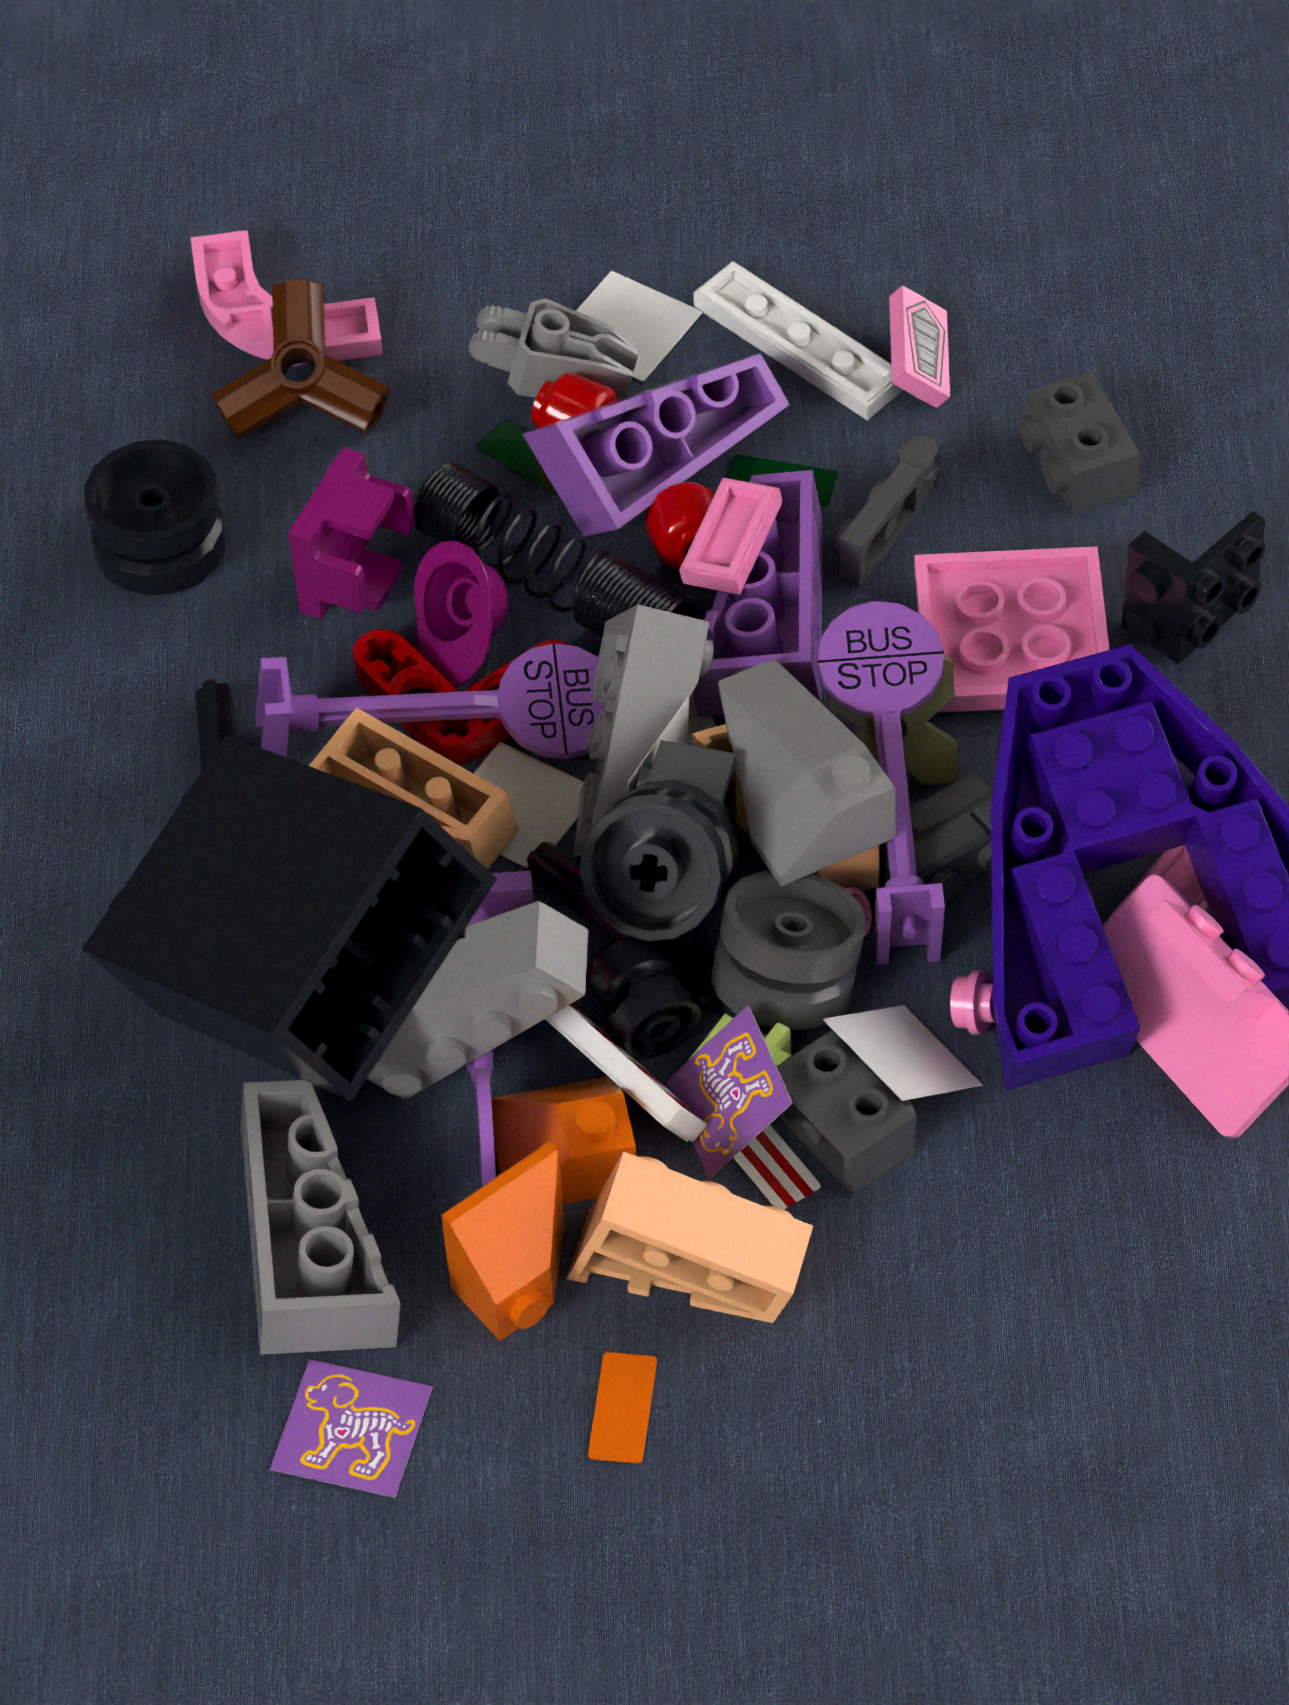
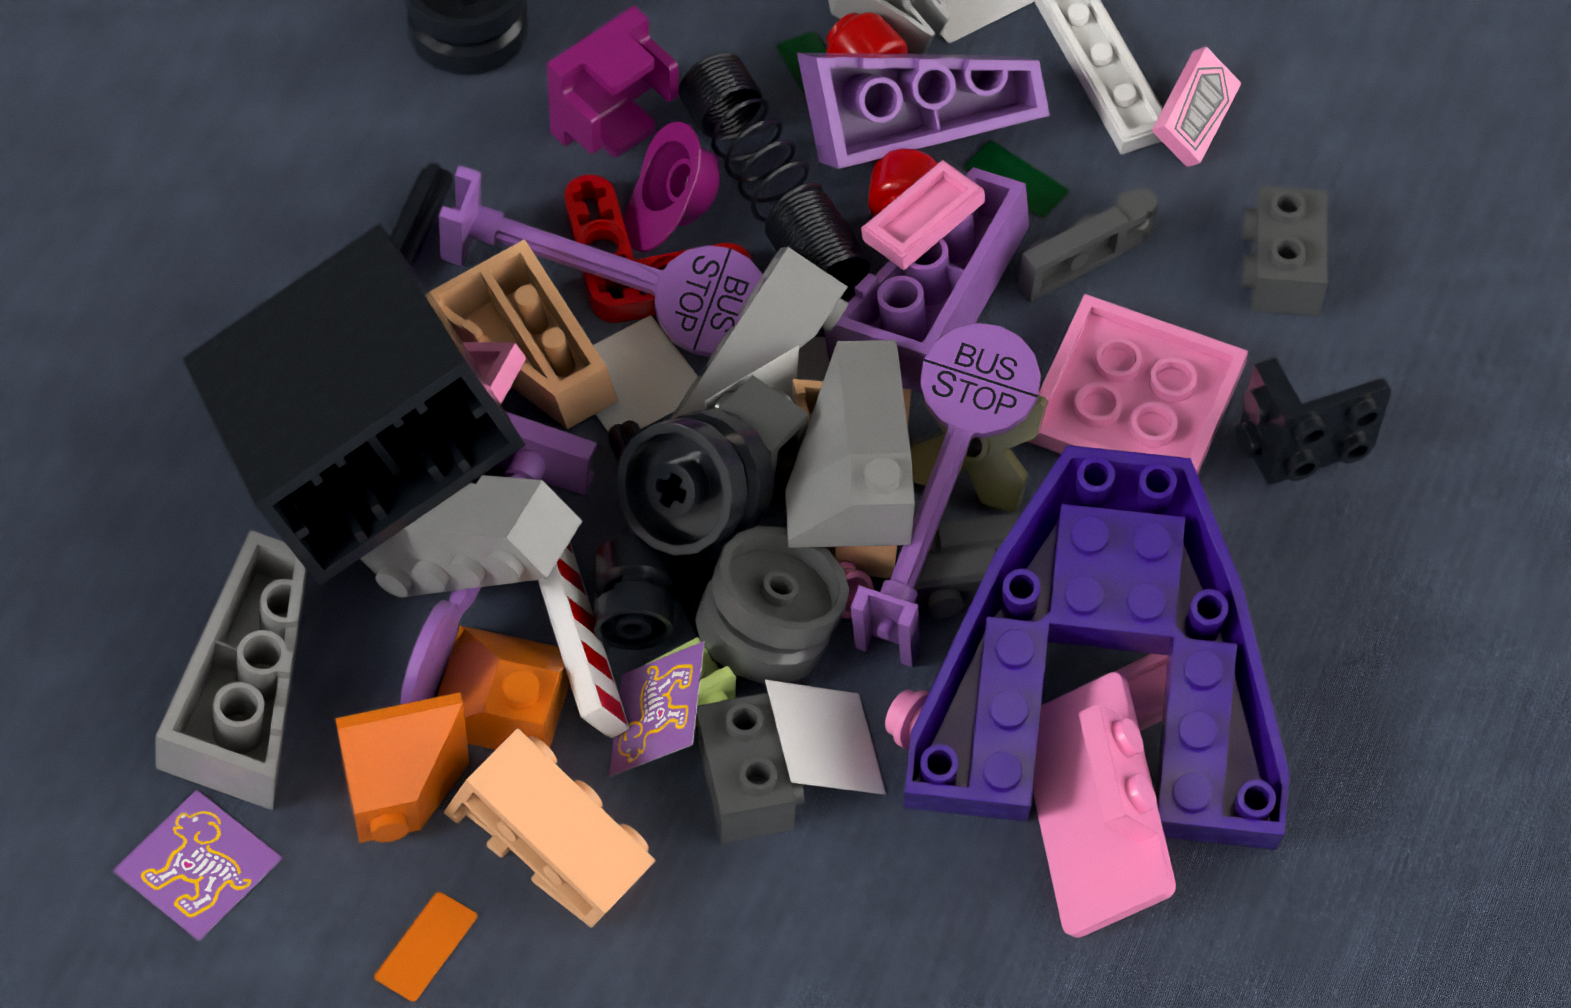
camera: 20 degrees right, 5 degrees up
(776, 1169) = (669, 792): sticker -> none

